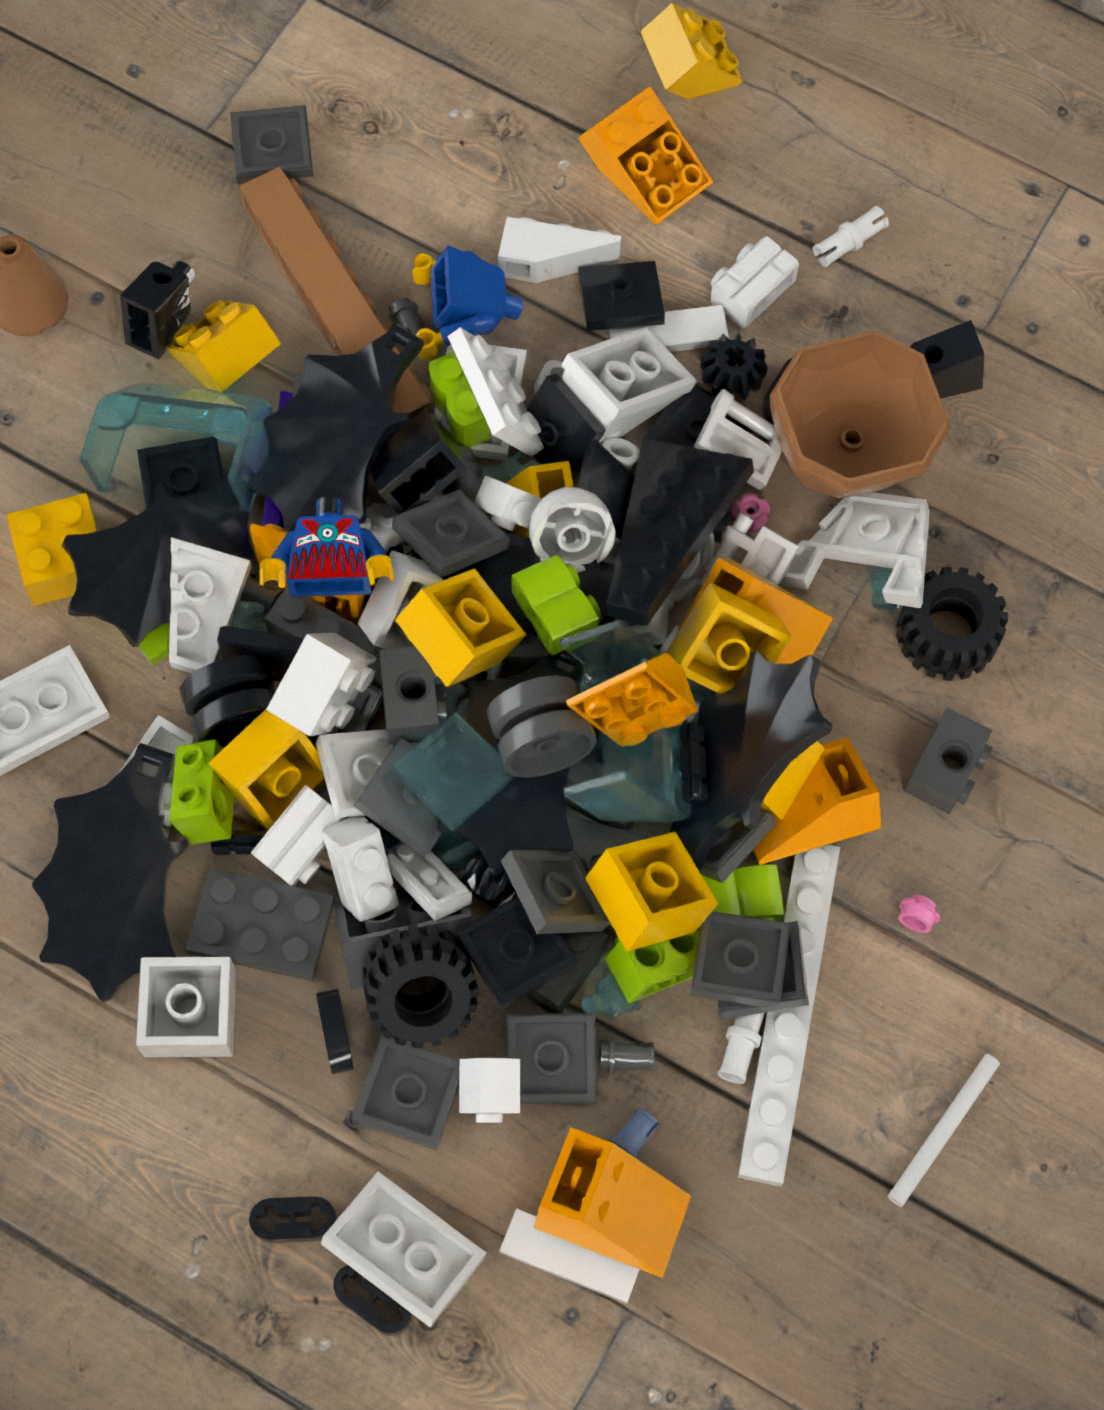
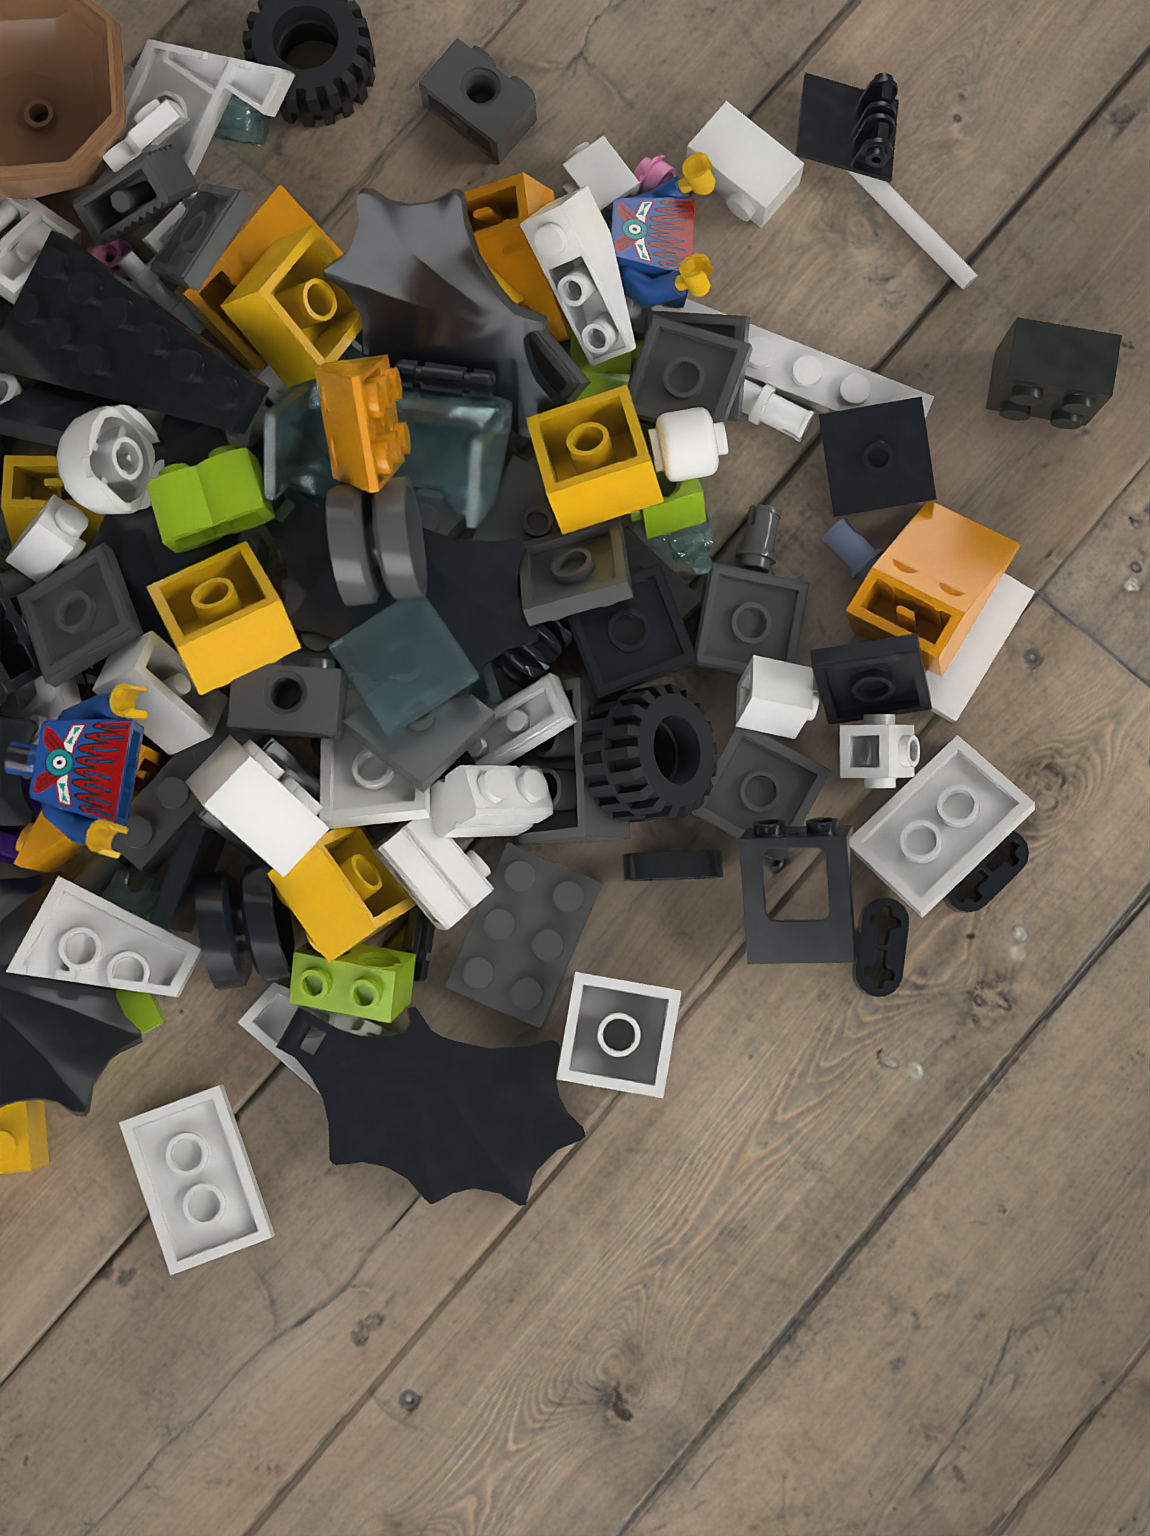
camera: 75 degrees left, 15 degrees up
(282, 1136) = (799, 941): none -> black window
(458, 1181) = (878, 751): none -> white brick
(516, 1161) = (871, 678): none -> black plate
(679, 962) = (687, 444): none -> white head
(716, 1140) = (877, 456): none -> black plate
(768, 562) = (201, 235): none -> dark grey plate
(799, 515) = (135, 194): none -> dark grey brick
(814, 853) = (583, 272): none -> white slope
(819, 1276) = (1053, 373): none -> pearl dark grey brick
(854, 515) = (154, 126): none -> white plate
(859, 915) = (656, 239): none -> torso
(902, 867) = (602, 171): none -> white brick
(948, 983) = (748, 165): none -> white brick
(1004, 1066) = (849, 125): none -> black hinge

